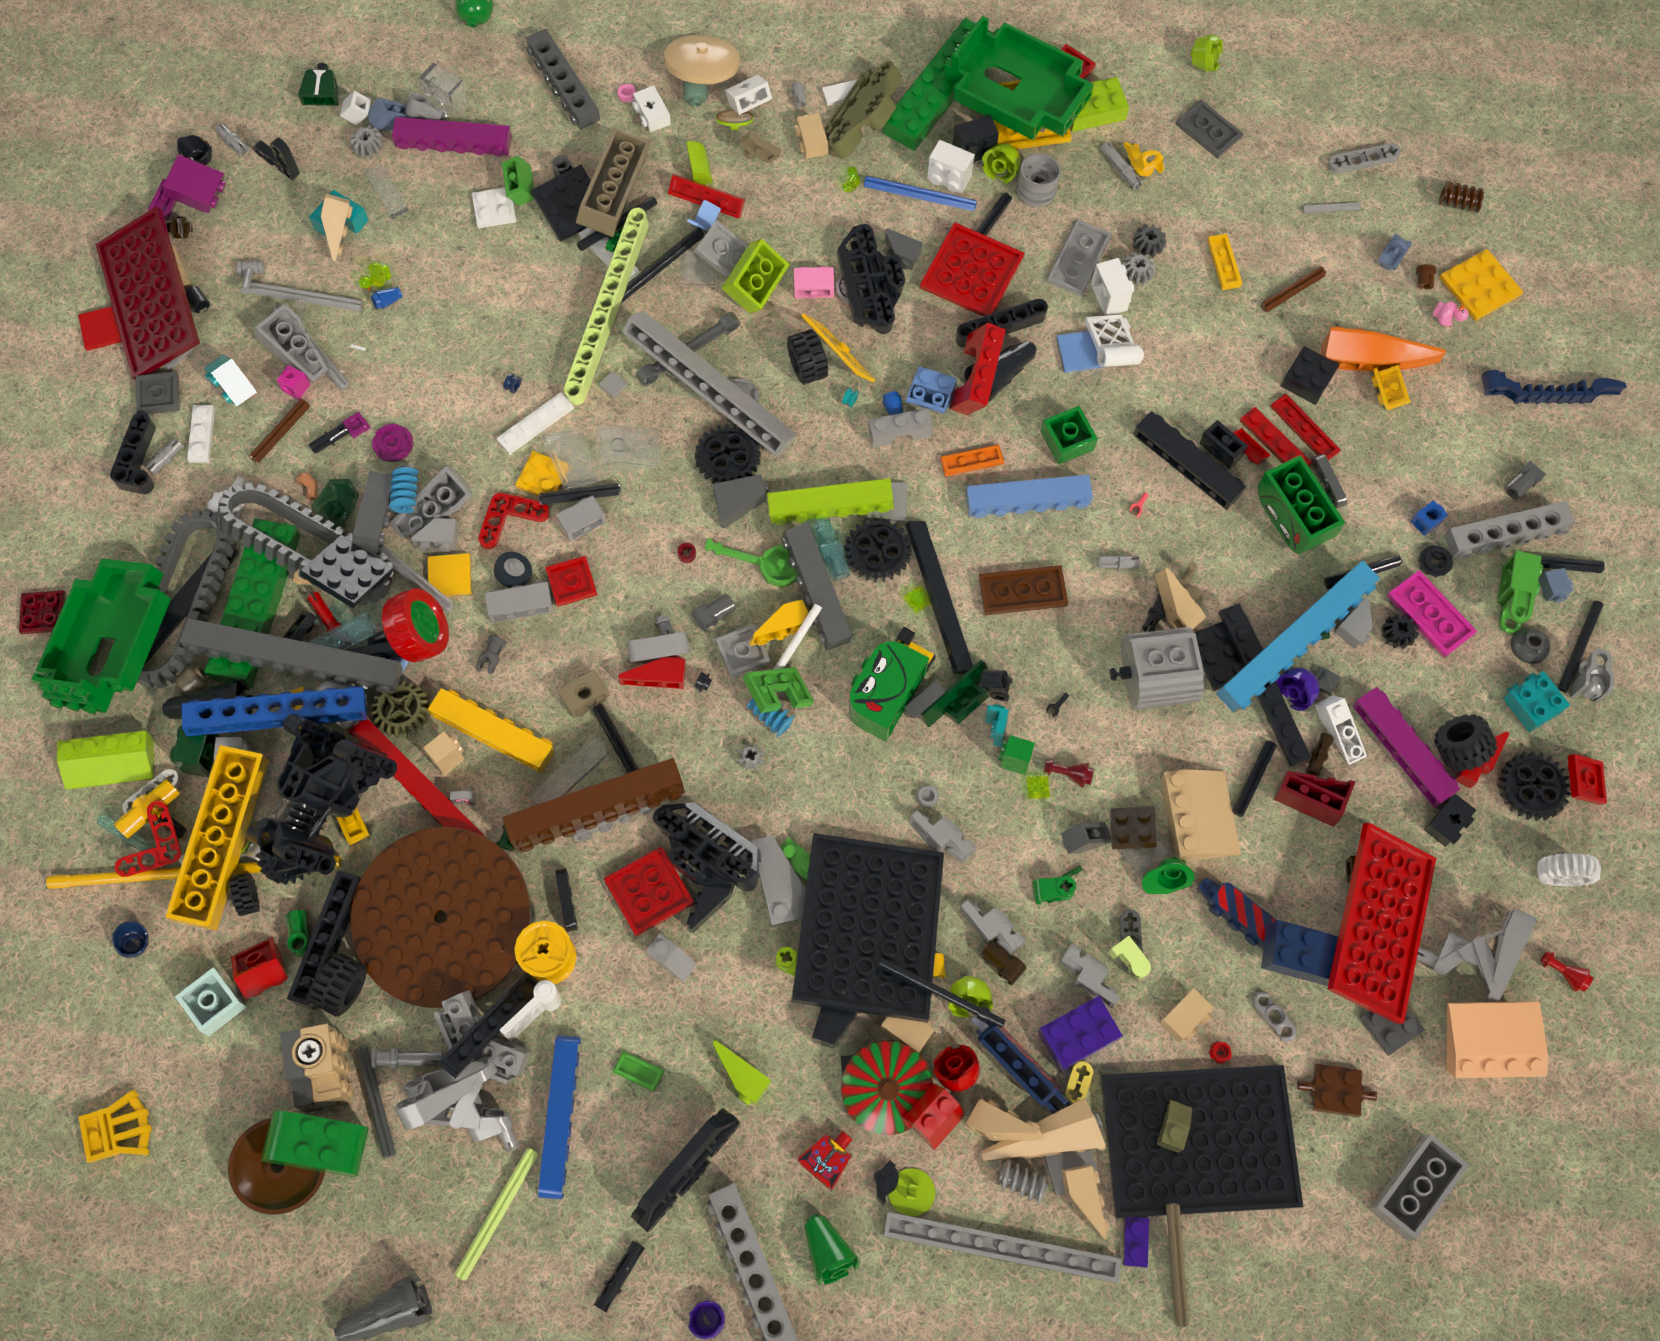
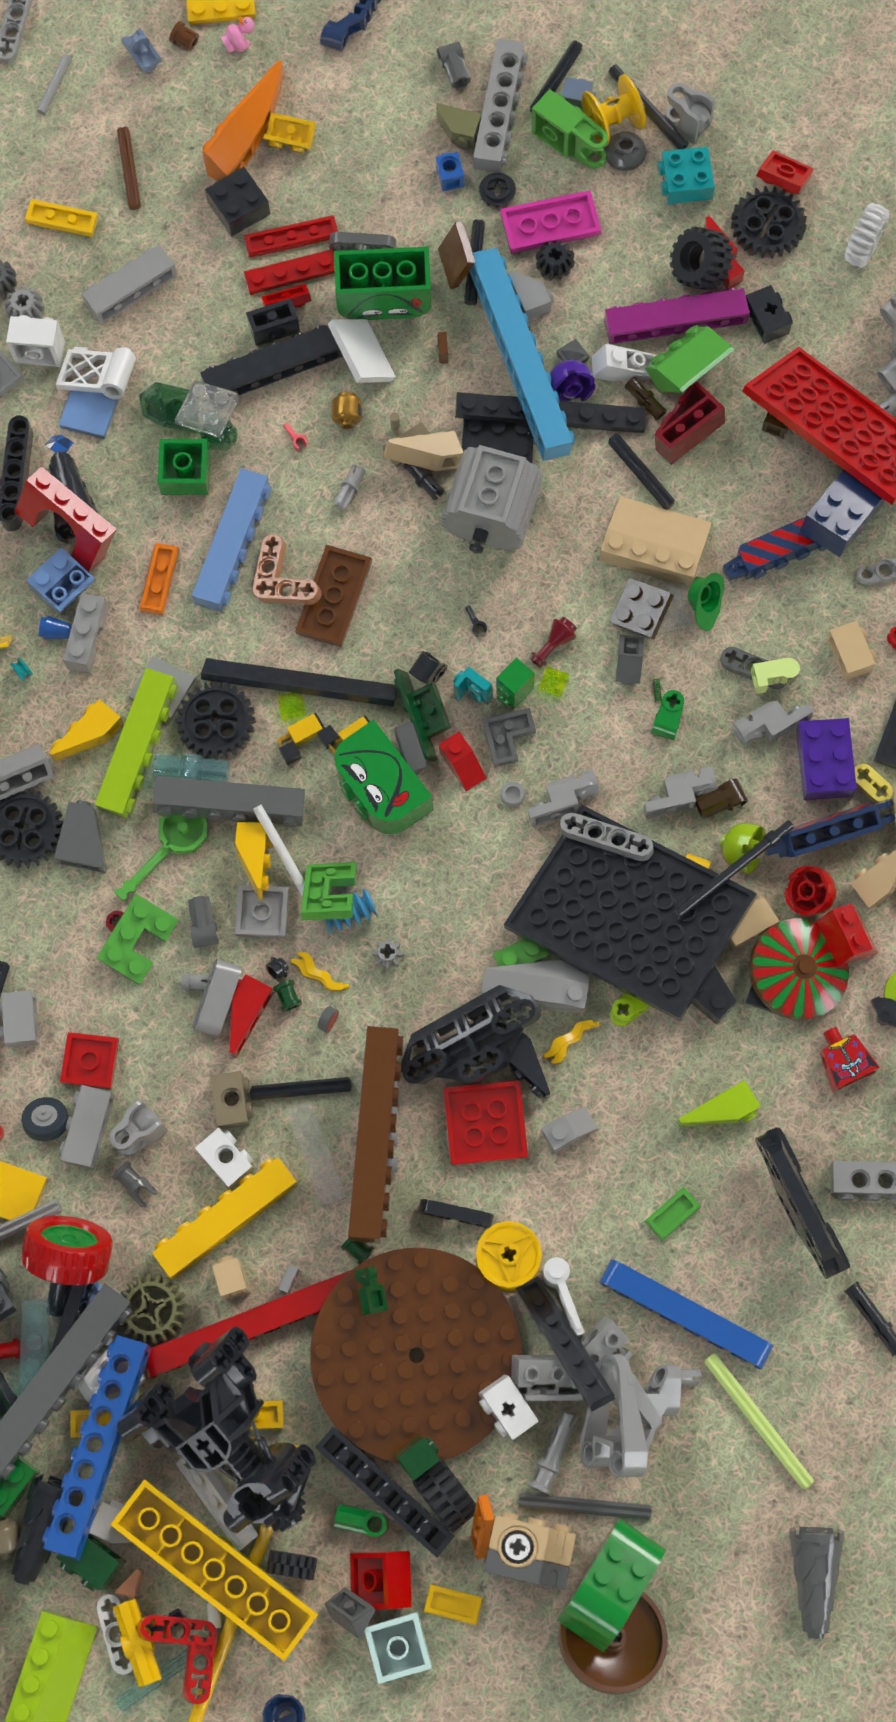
camera: 60 degrees left, 5 degrees up
(190, 787) = (132, 1584): none -> nougat slope
(225, 953) = (350, 1611): none -> dark grey slope
(261, 1032) = (453, 1604): none -> yellow tile
(328, 1016) = (482, 1526): none -> orange tile
(356, 947) = (417, 1456): none -> dark green brick
(424, 1017) = (520, 1414): none -> white brick
(468, 858) = (372, 1294): none -> dark green plate
(534, 635) = (140, 1126): none -> light grey piece
(537, 697) = (211, 1151): none -> white brick
(679, 736) = (328, 1019): none -> dark grey tile
(684, 698) = (287, 995): none -> dark green bush
(695, 563) = (118, 951): none -> bright green plate
(712, 706) = (309, 970): none -> yellow hair
(737, 922) = (561, 1043): none -> yellow hair
(828, 467) = (91, 730): none -> yellow slope
(897, 615) = (300, 733): none -> piece
(923, 881) = (608, 833): none -> light grey beam
(934, 744) = (462, 761): none -> red slope
(974, 764) = (502, 730): none -> dark grey plate
(1012, 540) = (277, 584): none -> nougat beam
(1043, 343) = (59, 443): none -> sticker
(1109, 448) = (225, 441): none -> clear green head
(1112, 405) = (162, 403): none -> clear green slope
(1123, 428) = (207, 408): none -> clear plate
(1181, 530) = (346, 410): none -> pearl gold head
(1197, 331) = (129, 283): none -> light grey brick
(1236, 519) = (361, 350): none -> white tile
(1274, 578) = (442, 347): none -> reddish brown tile
(1357, 552) = (456, 255): none -> reddish brown tile
(1370, 770) = (687, 359): none -> bright green slope
(1474, 506) = (459, 125): none -> olive slope
(1564, 623) = (626, 105): none -> yellow piece

